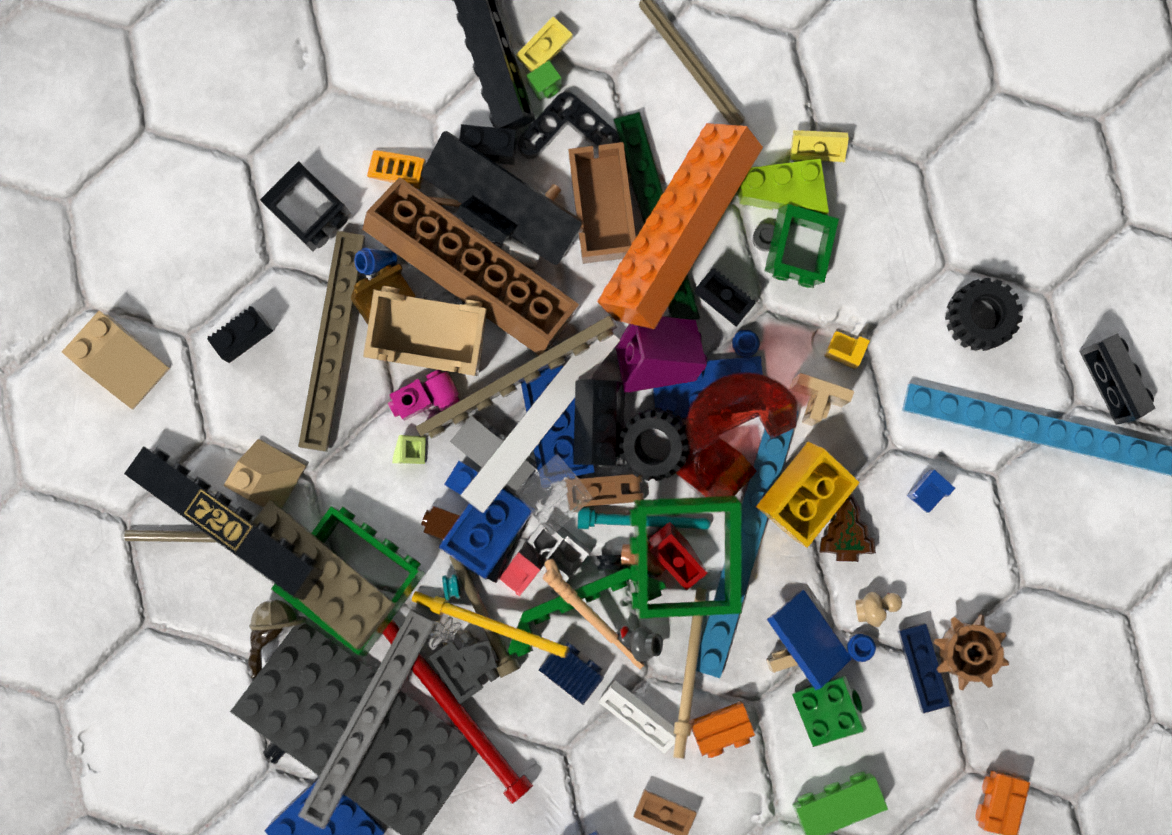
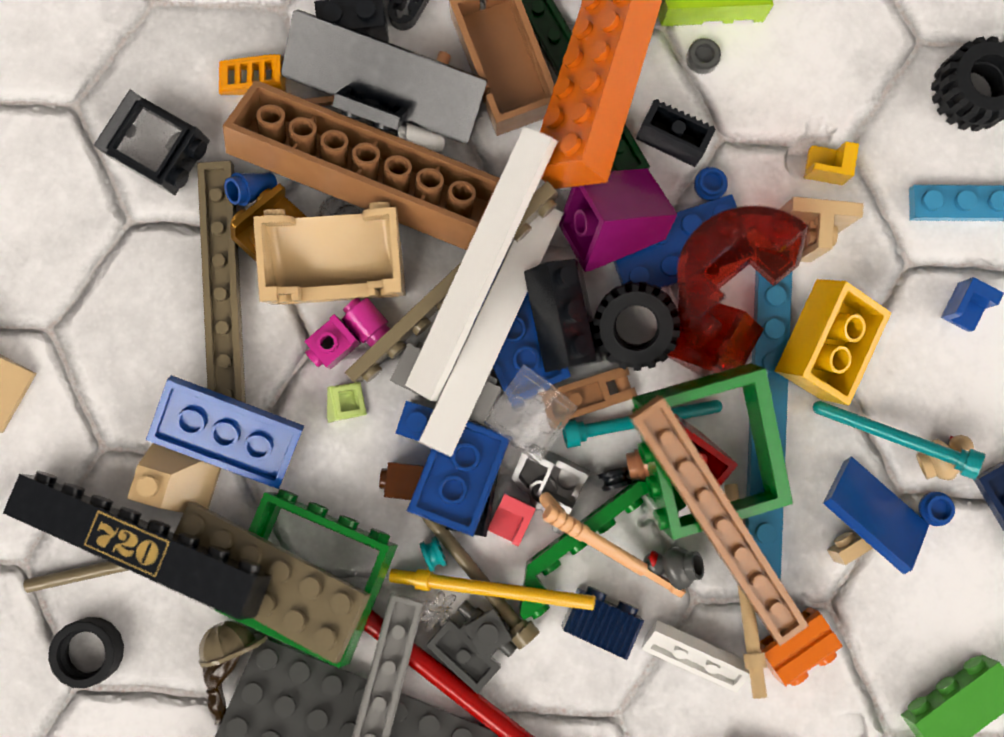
camera: 15 degrees left, 0 degrees up
(144, 585) = (60, 660): none -> black tyre
(240, 334) = (108, 312): black brick -> none
(311, 452) = (224, 432): none -> plate
(541, 369) = (481, 263): none -> white tile
(677, 612) = (718, 519): none -> medium nougat plate
(808, 219) = (755, 22): green window -> none
(830, 711) = (923, 597): green plate -> none
(847, 534) = (888, 380): reddish brown rock -> none
(886, 613) = (967, 462): none -> teal piece

